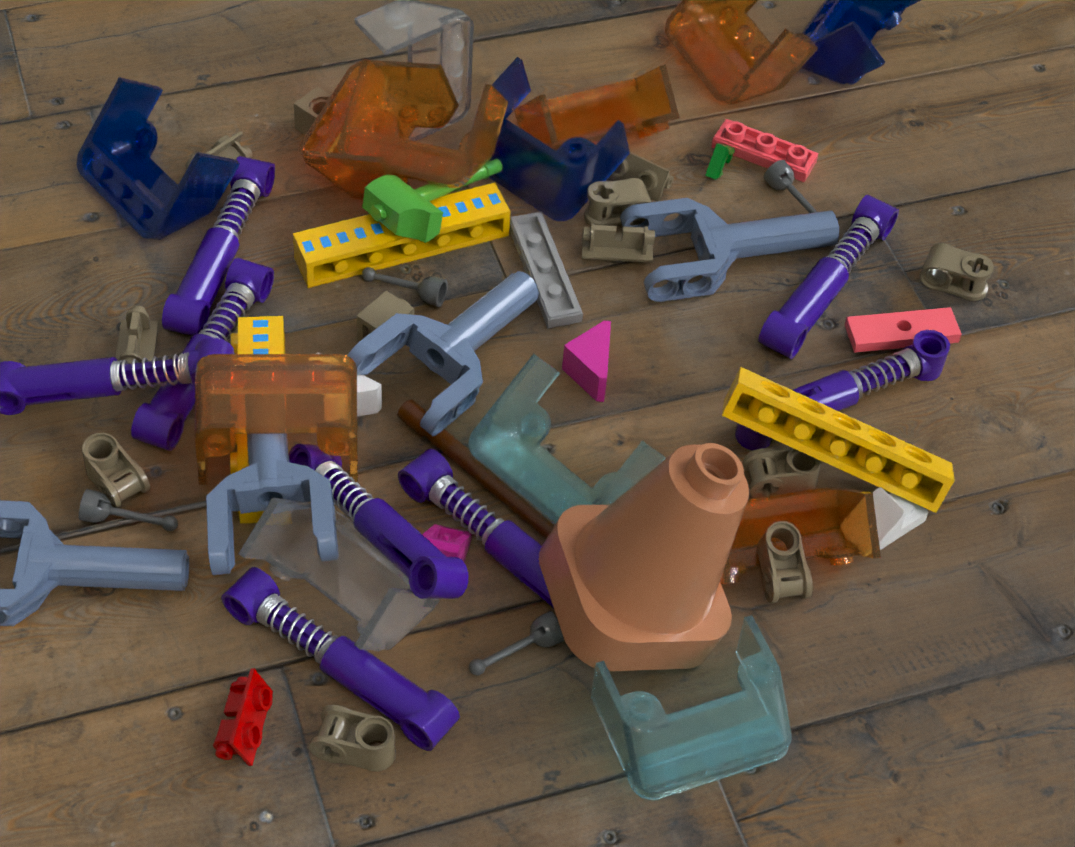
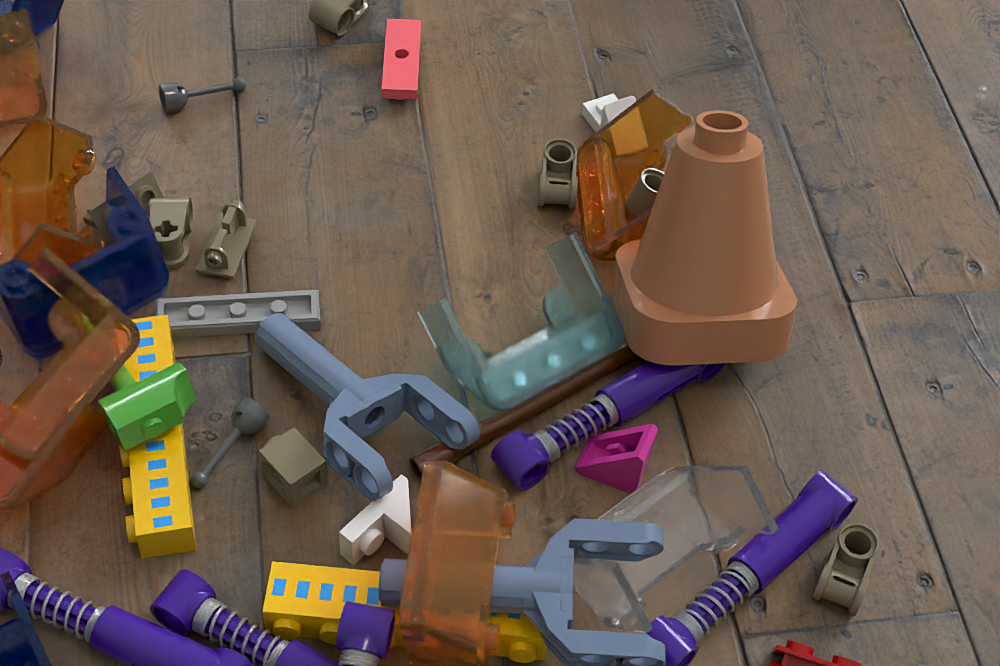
camera: 80 degrees left, 0 degrees up
(427, 568) = (631, 482): dark purple piece -> none
(543, 631) = (723, 391): dark grey hinge -> none
(587, 360) = (391, 290): dark pink slope -> none
(703, 741) = (861, 323): clear light blue windscreen -> none
(721, 155) = (132, 136): green tile -> none
(722, 243) = (254, 159): sand blue piece -> none
(765, 148) = (122, 103): coral tile -> none
(788, 327) = (382, 135): dark purple piece -> none
(838, 440) = (548, 120): yellow brick -> none
(843, 389) = (480, 143): dark purple piece -> none

